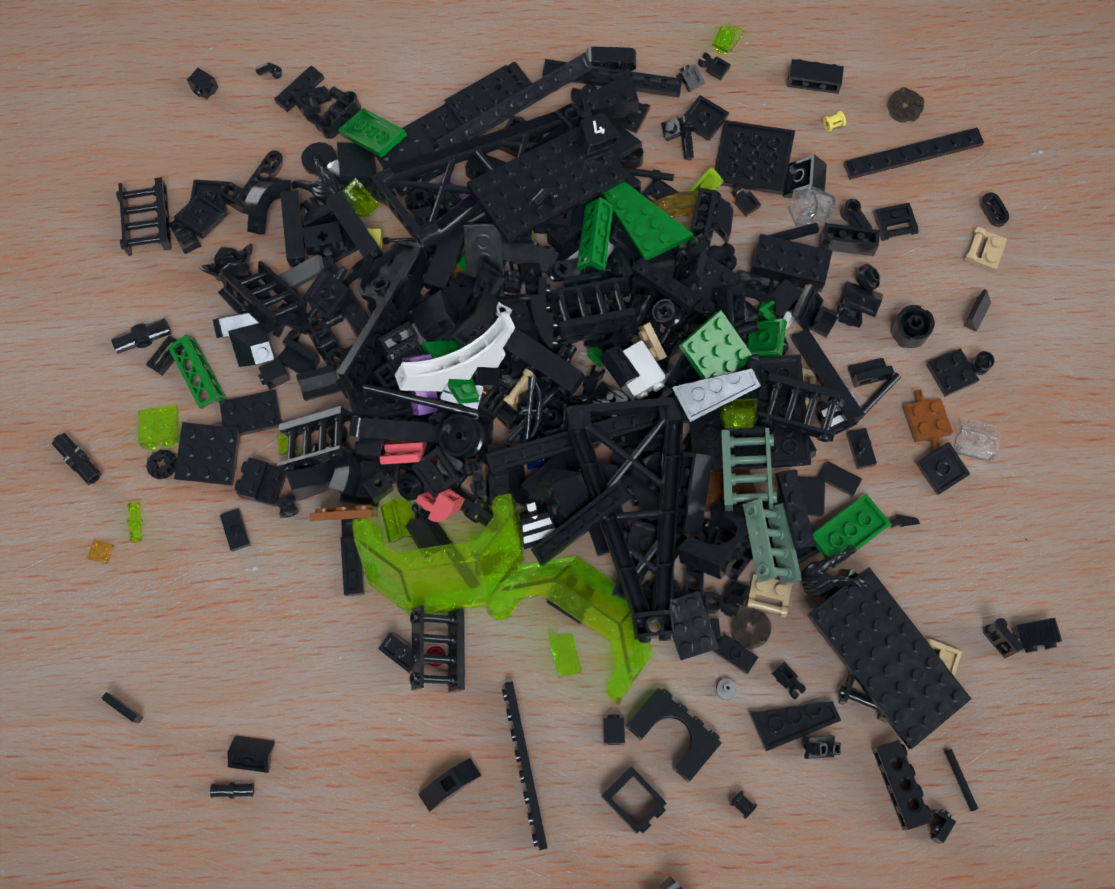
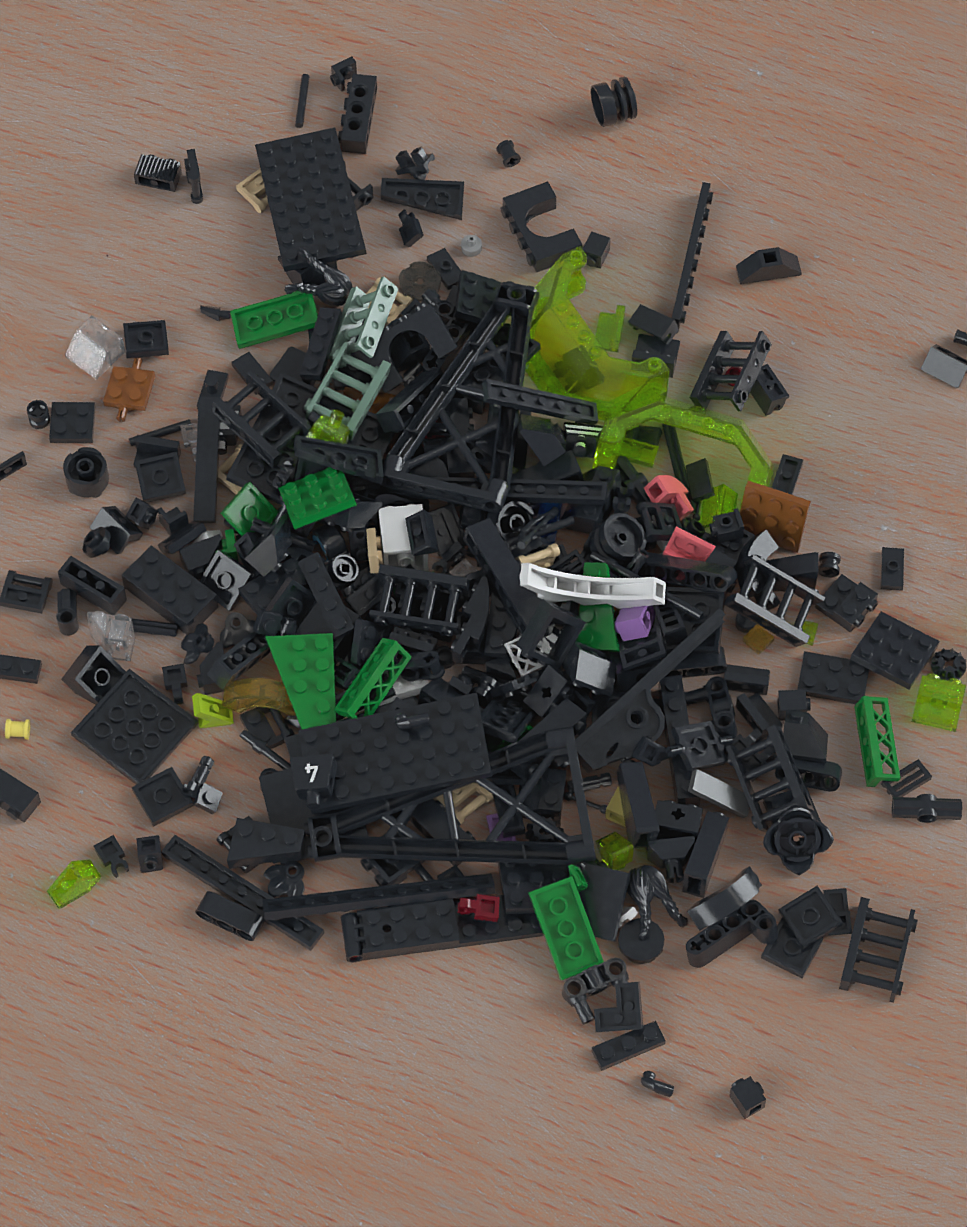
camera: 155 degrees left, 10 degrees down
(376, 161) = (578, 877): none -> green slope
(435, 120) = (483, 907): none -> dark red plate
(513, 645) = (651, 346): none -> black bracket
(527, 671) = (654, 323): none -> black hinge
(657, 811) = (602, 211): black window -> none
(743, 228) = (197, 643): none -> black plate
(855, 351) = (160, 477): none -> black plate

